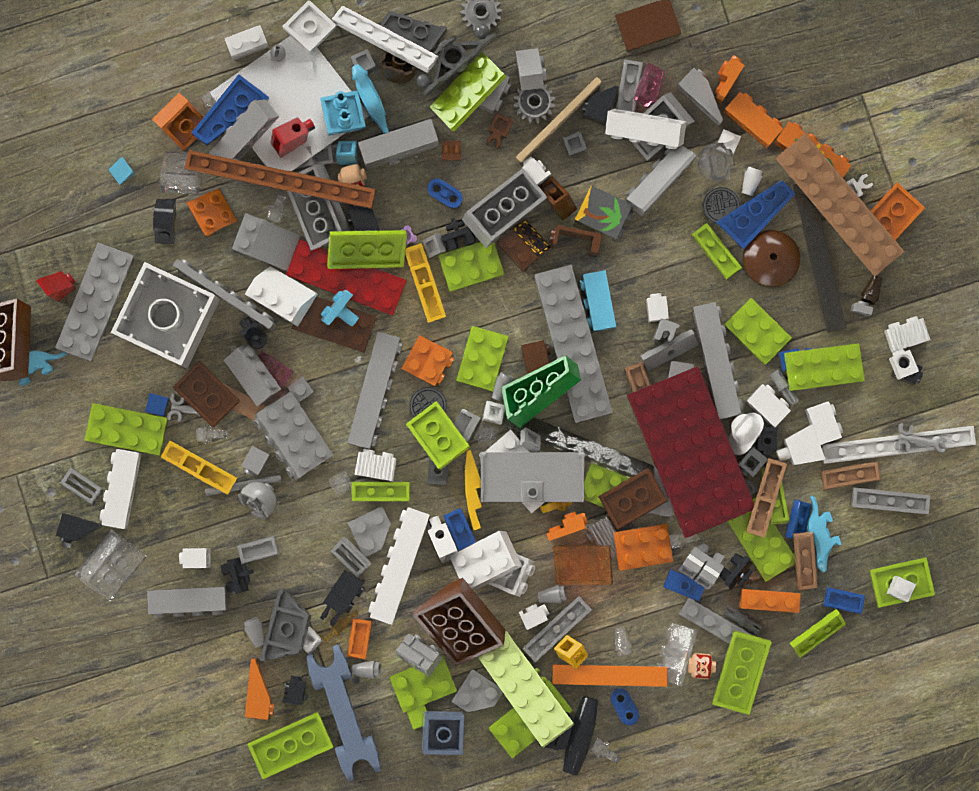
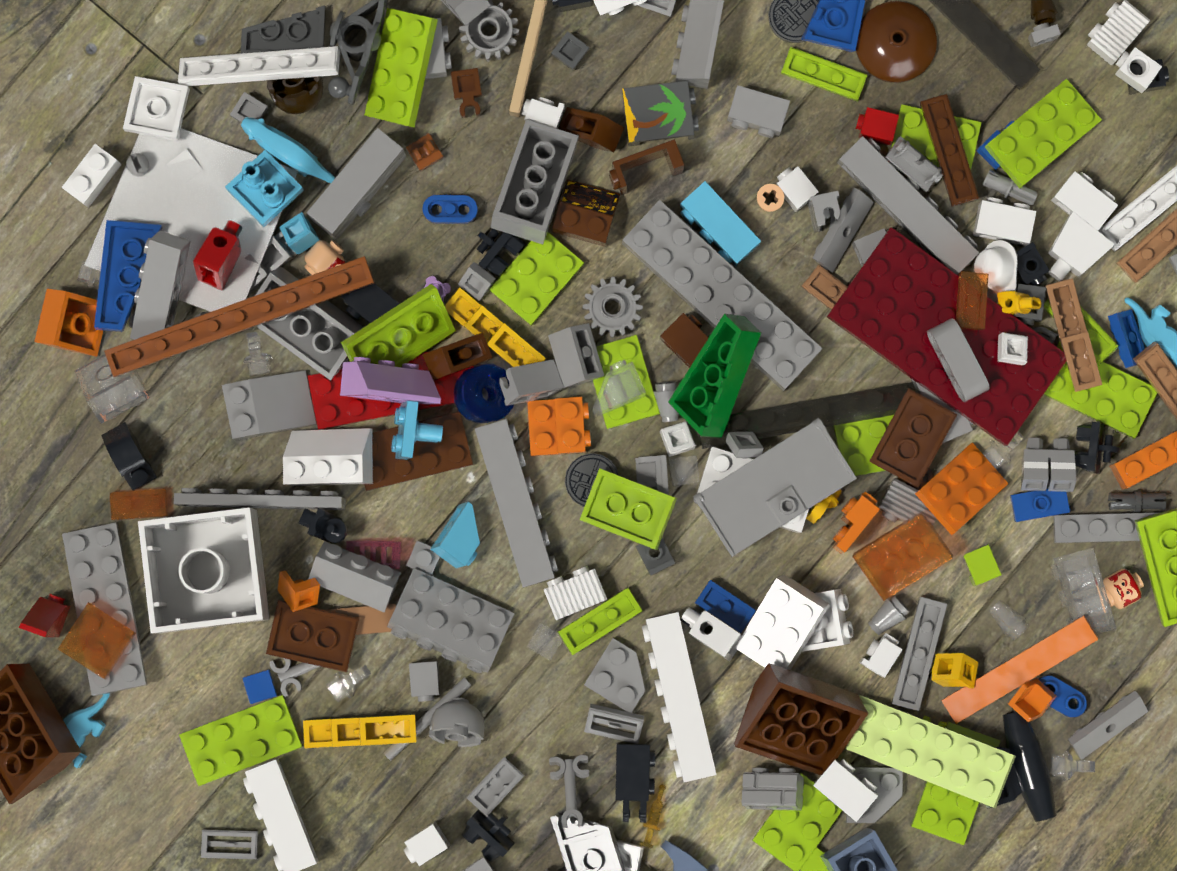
camera: 30 degrees left, 0 degrees up
(78, 317) = (96, 641): none -> clear orange plate
(121, 171) = (36, 428): medium azure slope -> none
(153, 253) = (138, 504): none -> clear orange plate
(211, 212) = (179, 409): orange hinge -> none
(214, 364) = (298, 593): none -> orange panel
(307, 567) = (569, 769): none -> light grey bar
(328, 390) = (458, 538): none -> medium azure slope
(343, 272) = (388, 382): none -> lavender slope
(359, 638) = (687, 816): orange plate -> none
(367, 669) = (720, 848): light grey cone -> none
(394, 282) = (457, 356): none -> reddish brown slope
(407, 318) = (469, 395): none -> clear blue wheel
(427, 325) = (531, 382): none -> light grey hinge
(462, 681) = (846, 790): none -> white brick
(464, 326) = (576, 355): none -> light grey brick
(472, 482) = (705, 541): yellow slope -> none
(476, 360) = (618, 388): none -> clear slope
(504, 321) = (616, 293): none -> light grey gear
(606, 697) = (1032, 699): none -> orange panel
(626, 599) = (981, 565): none -> lime panel
(639, 298) = (766, 190): none -> light nougat bush
(641, 741) = (1107, 725): none -> light grey tile
(663, 249) = (758, 111): none -> light grey brick
(687, 469) = (958, 360): none -> light grey beam
(718, 439) = (972, 300): none -> clear orange plate
(724, 483) = (1012, 348): none -> white tile
(728, 301) = (877, 125): none -> red brick
(735, 337) = (913, 164): none -> light grey hinge
(746, 459) = (1021, 302): none -> yellow piece
(762, 342) = (949, 150): none -> reddish brown tile

